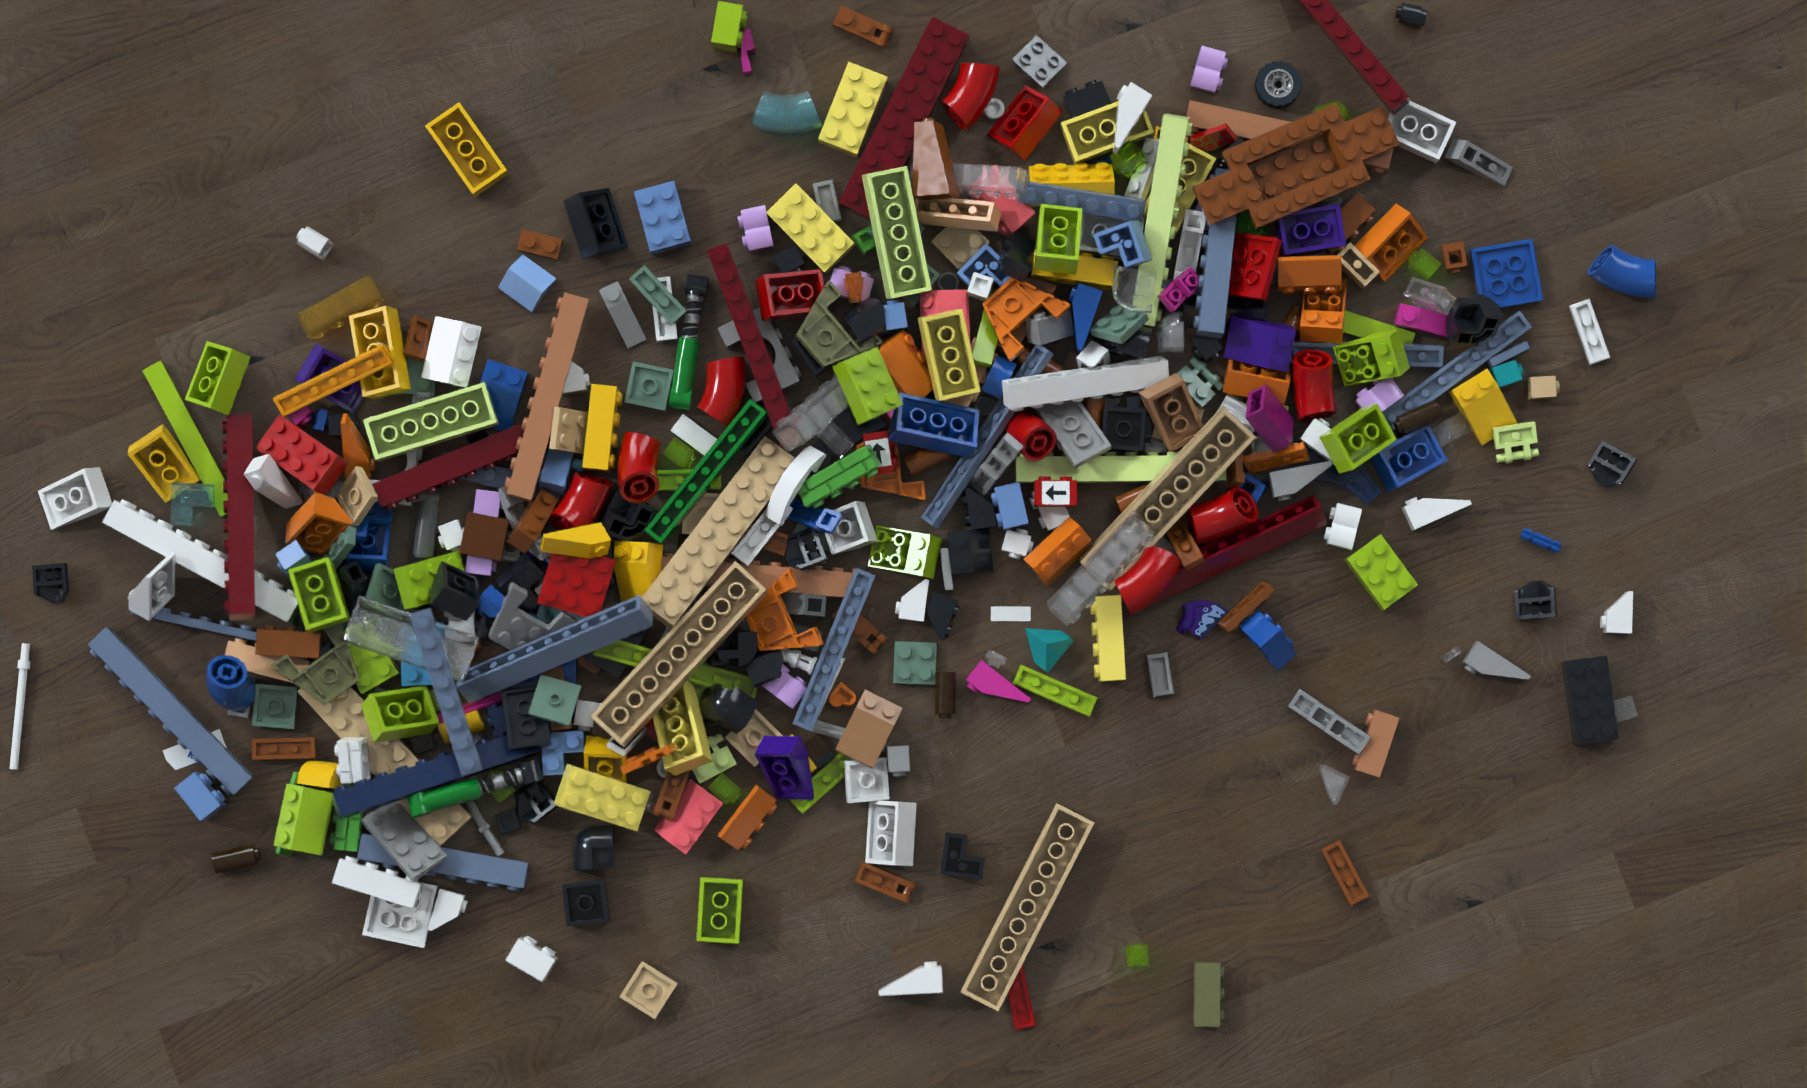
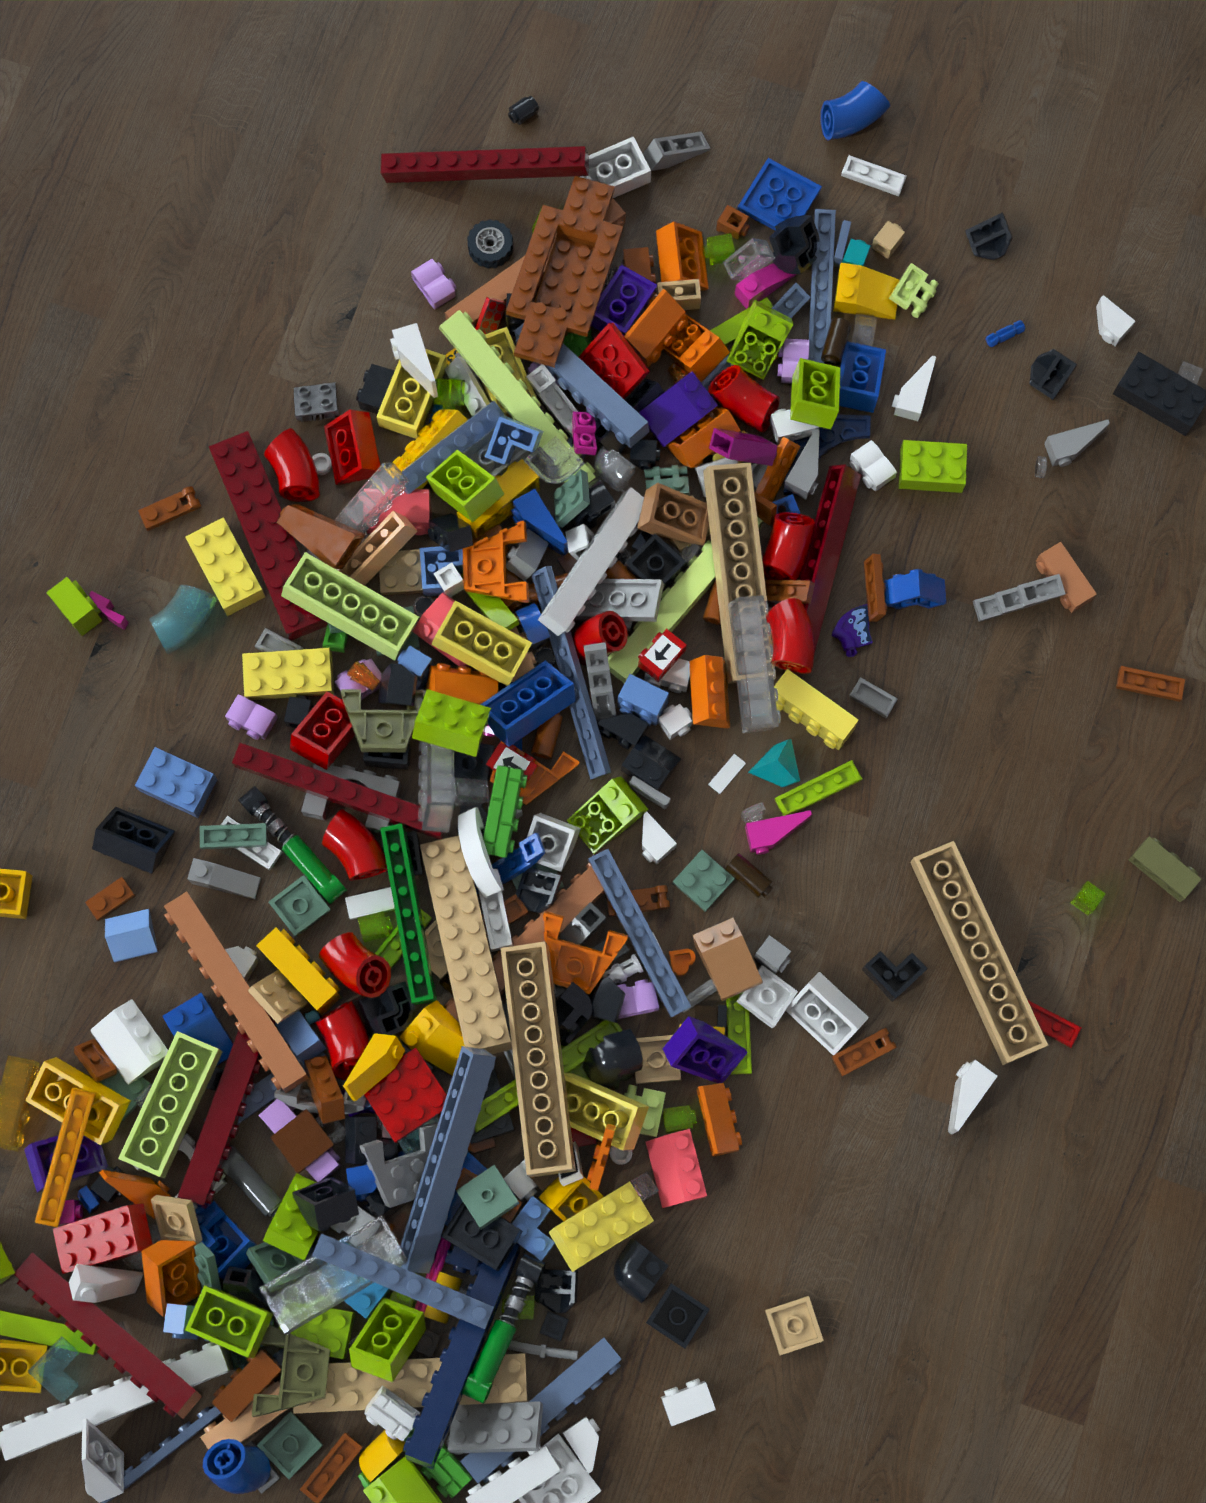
camera: 50 degrees left, 10 degrees down
(451, 535) = (278, 1170): white brick -> none
(670, 793) = (645, 1166): dark orange plate -> none
(720, 910) = (776, 1207): lime brick -> none
(940, 612) = (680, 826): black slope -> none
(1334, 782) = (1070, 634): clear slope -> none

